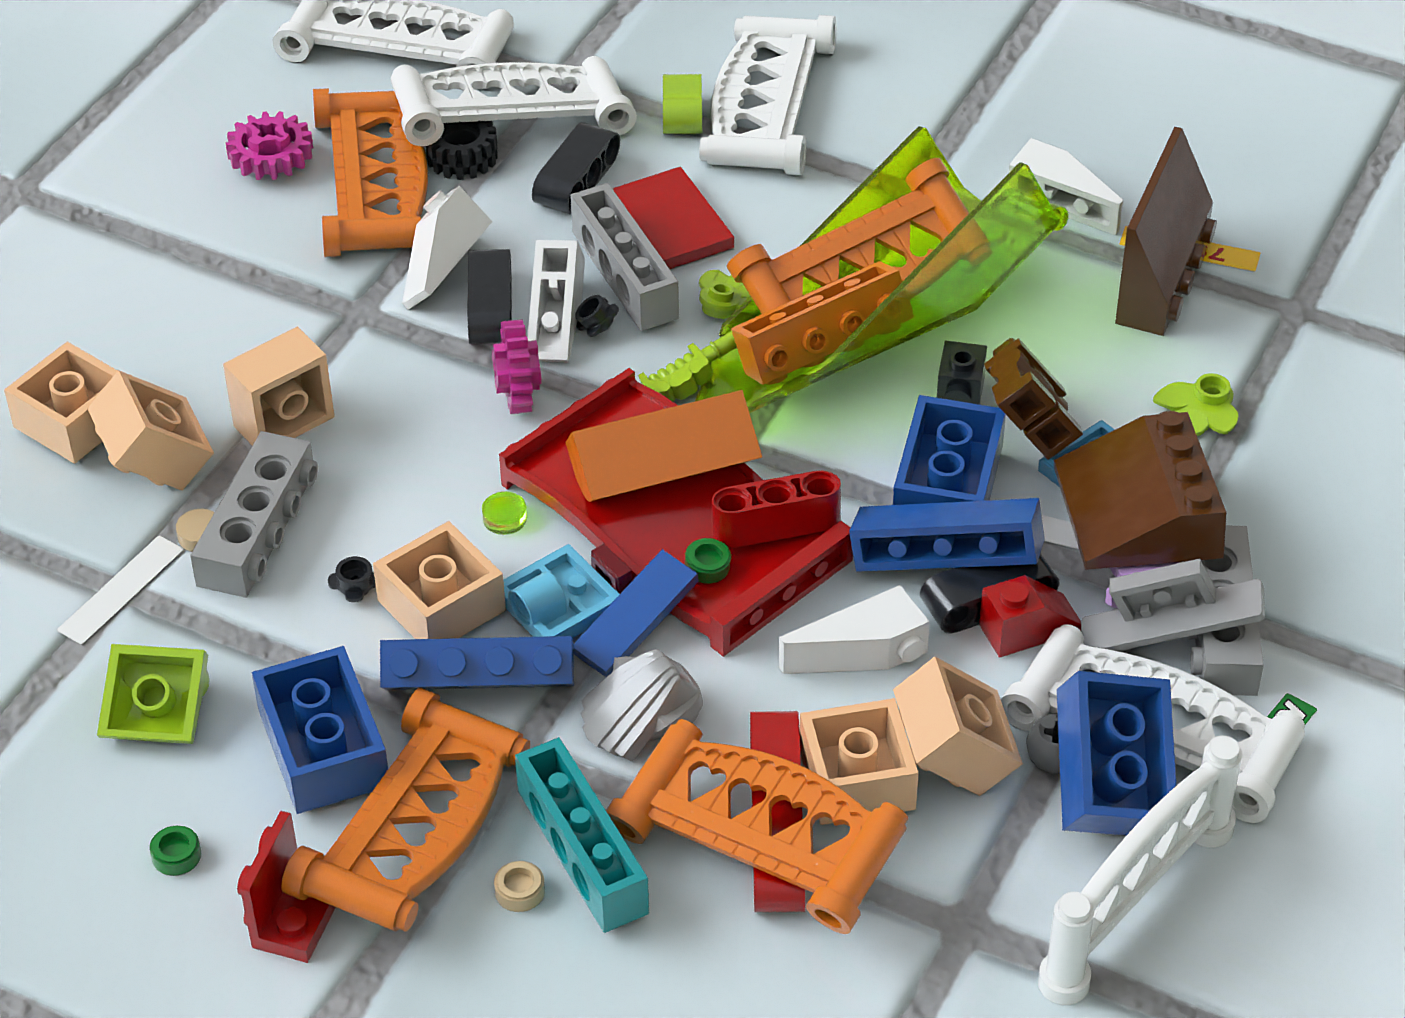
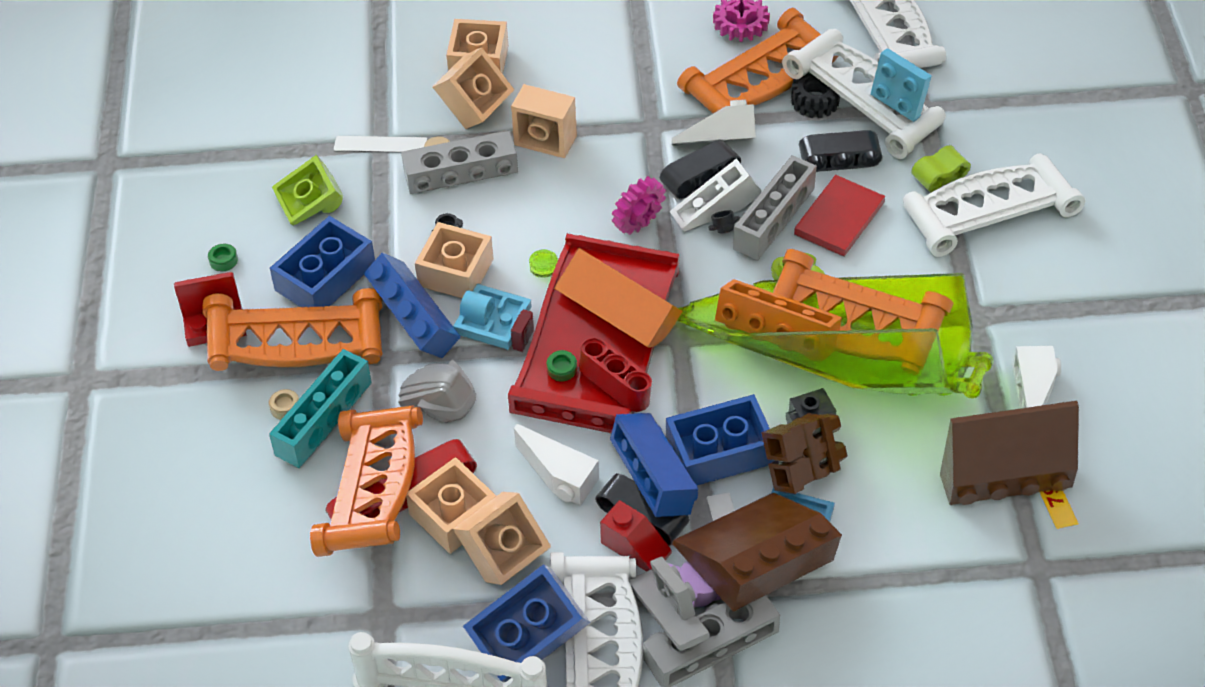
camera: 60 degrees right, 5 degrees up
(558, 52) = (900, 84): none -> medium azure plate
(635, 612) = (500, 354): blue tile -> none
(682, 378) = (703, 283): lime piece -> none
(1206, 402) = (889, 548): lime plate -> none

